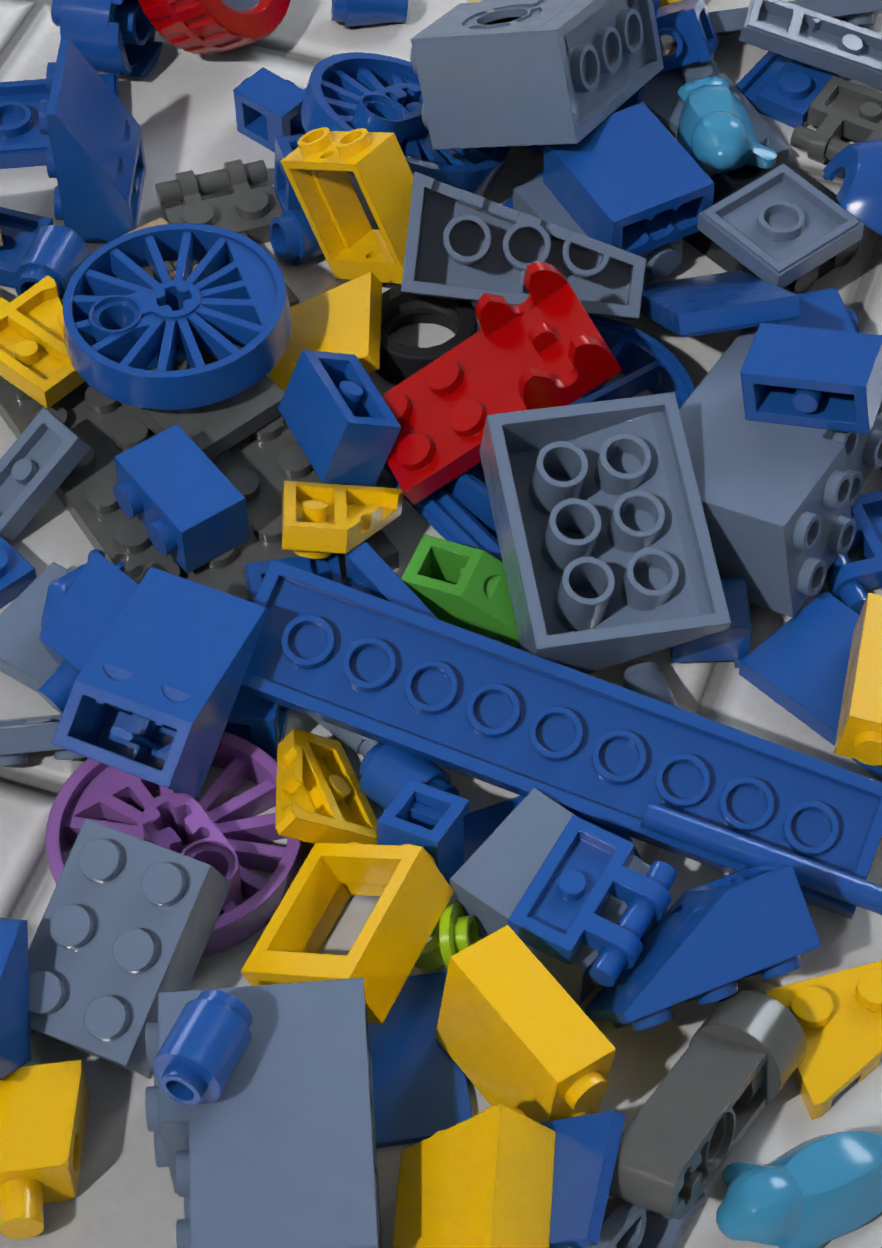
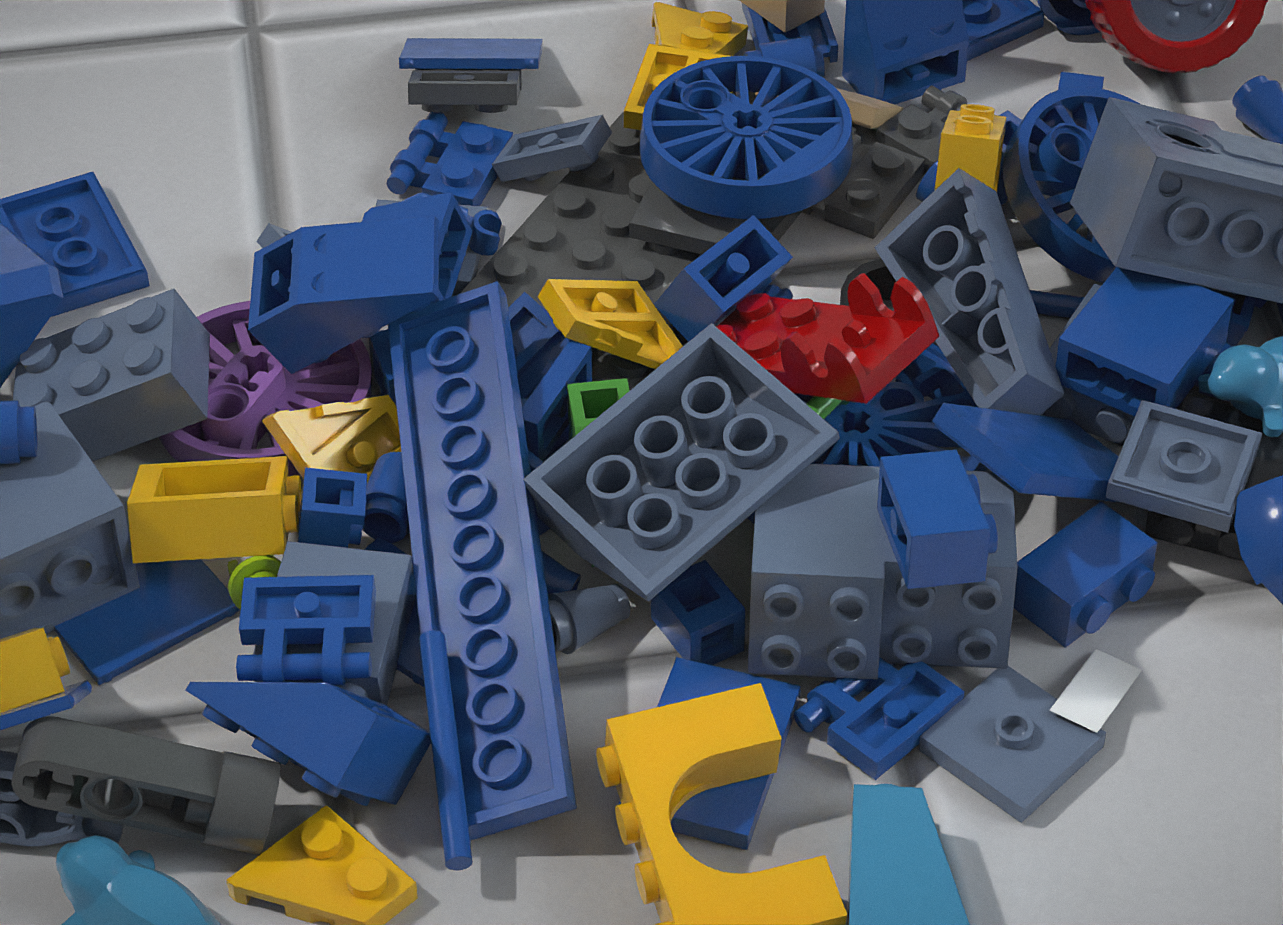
camera: 60 degrees right, 5 degrees down
(180, 499) = (573, 229): blue brick -> none
(336, 322) = (832, 251): yellow tile -> none
(521, 1032) = (154, 644): yellow brick -> none

